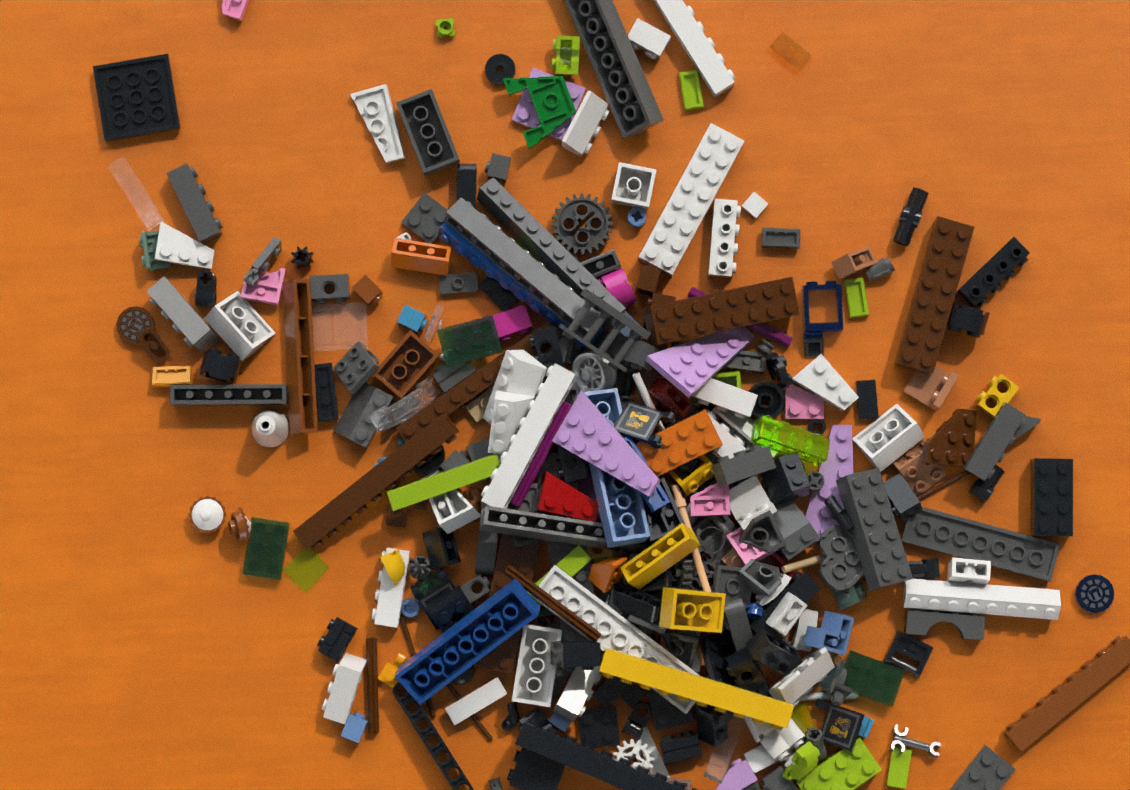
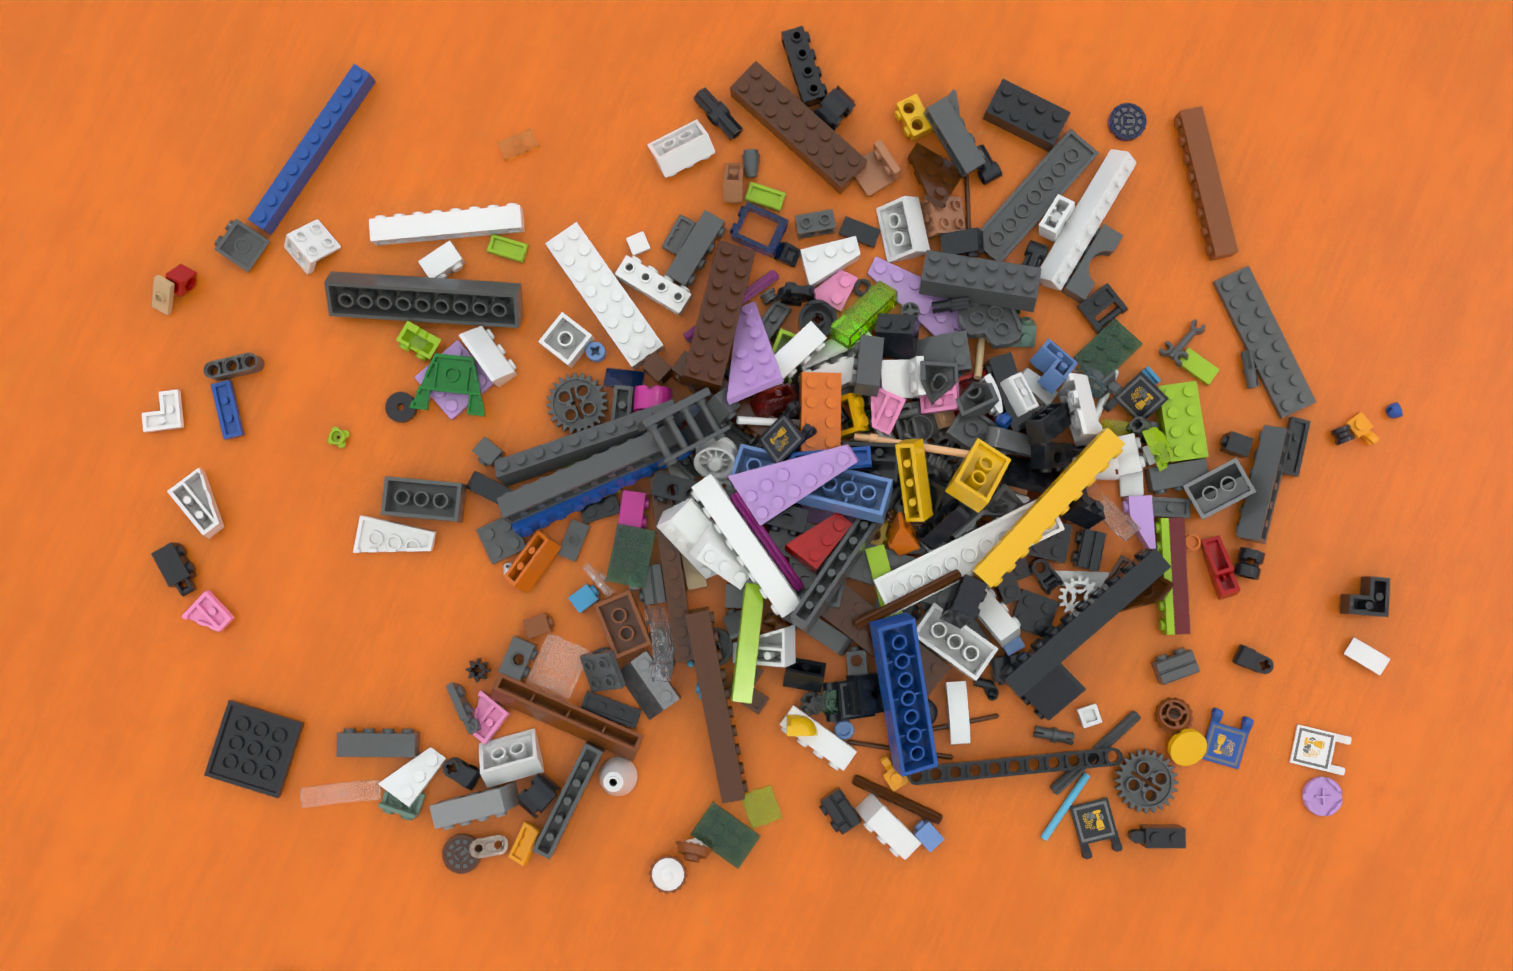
camera: 60 degrees left, 0 degrees up
(625, 254) = (623, 378): none -> clear blue slope
(775, 259) = (696, 248): none -> dark grey brick
(852, 355) = (815, 224): none -> dark grey brick
(861, 199) = (681, 148): none -> white slope

